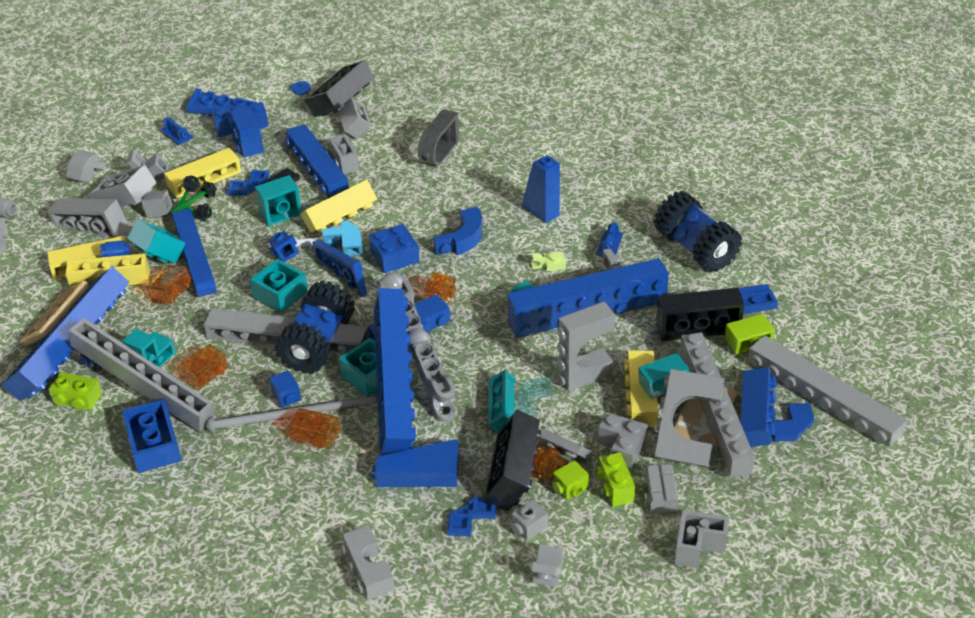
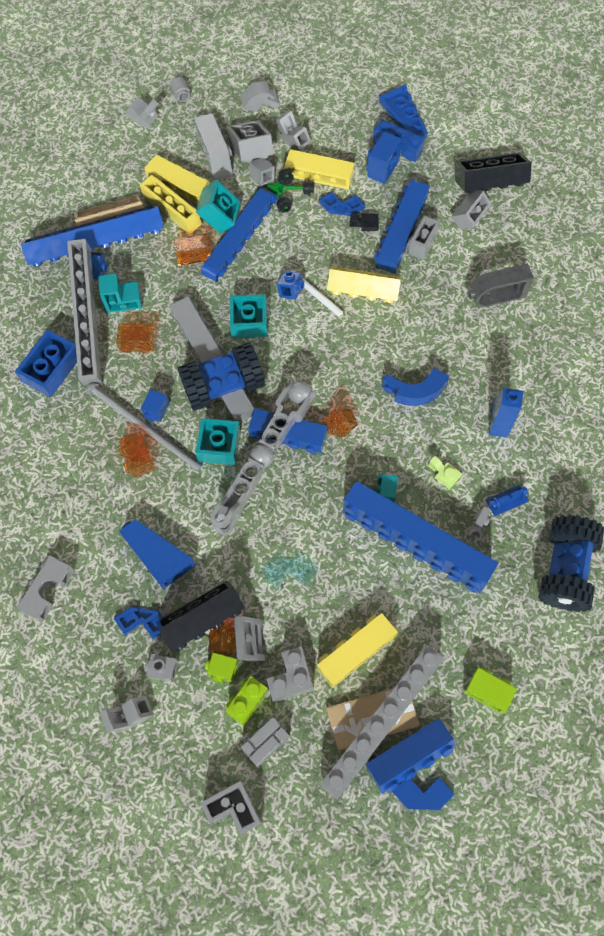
camera: 50 degrees right, 25 degrees up
(75, 391) = (55, 284): lime brick -> none
(114, 248) = (186, 191): blue brick -> none
(175, 131) = (349, 114): blue hinge -> none
(278, 200) = (330, 241): teal brick -> none
(300, 88) = (477, 144): blue piece -> none
(342, 265) = (304, 336): blue wing -> none
(347, 235) = (338, 319): medium azure brick -> none
(393, 372) = (204, 469): blue brick -> none
(394, 248) = (355, 355): blue brick -> none
(500, 399) = (260, 557): teal container -> none
(573, 333) = (344, 582): light grey arch -> none
(653, 374) = (367, 666): teal brick -> none
(680, 388) = (312, 717): light grey arch -> none
(698, 313) = (474, 636): black brick -> none
(758, 298) = (540, 662): blue plate -> none
(828, 391) = (478, 802): light grey brick -> none

